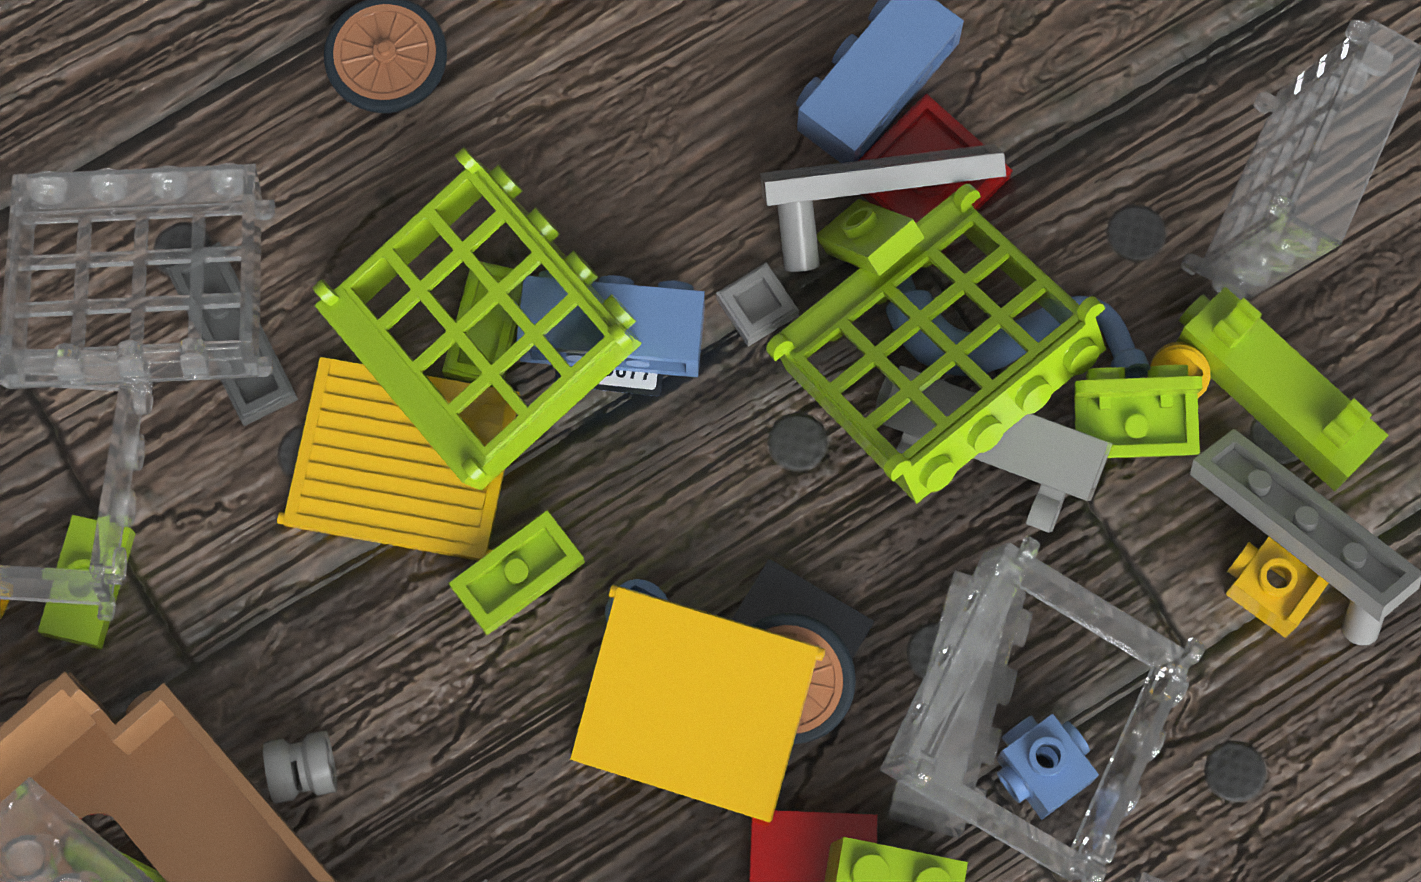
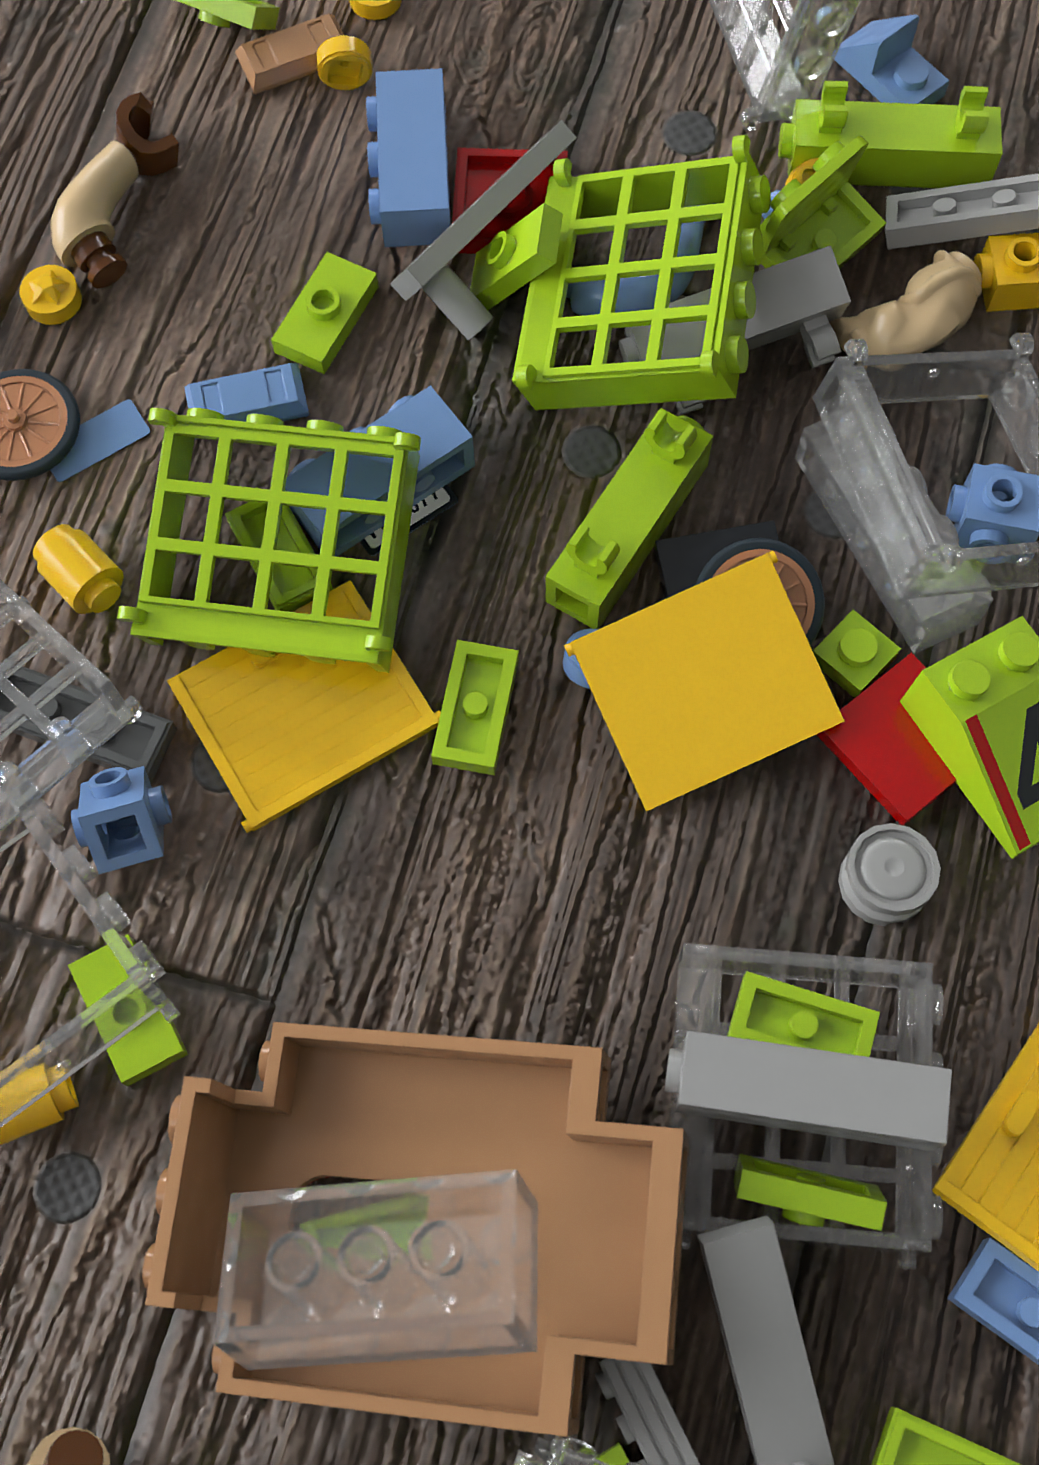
camera: 40 degrees left, 5 degrees down
(193, 441) = (121, 818): none -> medium blue brick
(314, 766) = (454, 986): light grey wheel -> none
(327, 216) = (78, 569): none -> yellow brick
(442, 115) = (102, 438): none -> medium blue sticker
(573, 176) = (265, 391): none -> medium blue tile
(696, 151) = (325, 313): none -> lime plate
(757, 304) = (471, 379): light grey tile -> none
(766, 523) = (628, 518): none -> lime brick
(837, 778) = (855, 653): none -> lime plate
(1158, 559) = (930, 311): none -> tan animal
(1357, 316) = (888, 65): none -> medium blue slope

